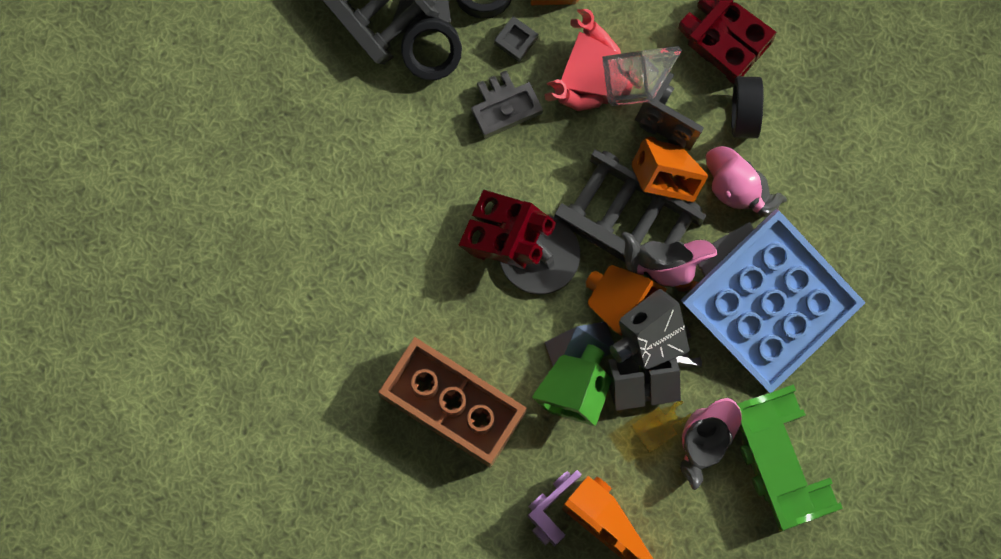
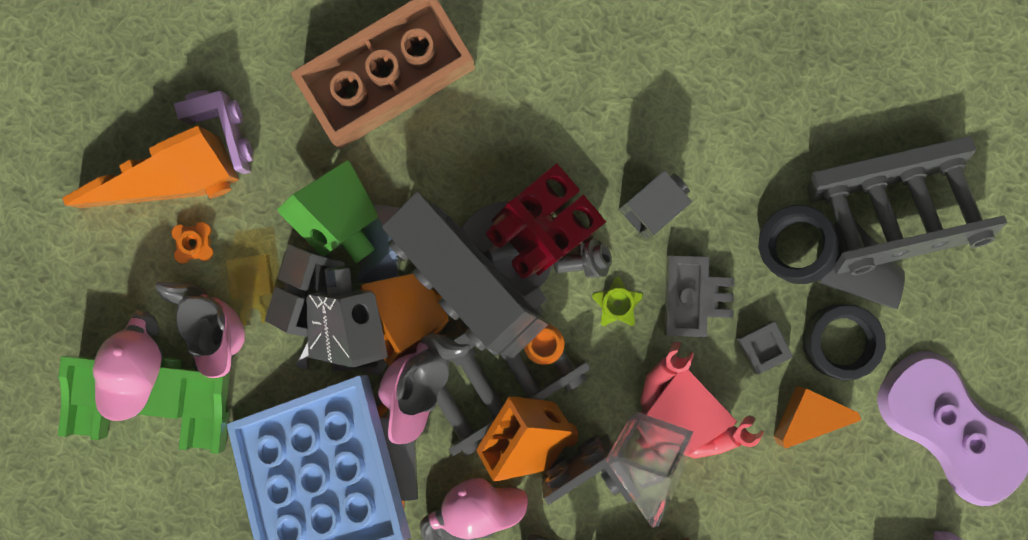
camera: 120 degrees right, 10 degrees up
(454, 159) = (657, 204): none -> dark grey piece
(514, 187) = (594, 260): none -> dark grey plate
(540, 149) = (617, 292): none -> lime plate
(575, 263) = (463, 277): none -> dark grey piece
(593, 190) = (546, 346): none -> orange plate
(660, 487) = (200, 234): none -> orange plate
(766, 473) = (127, 368): none -> bright pink hair

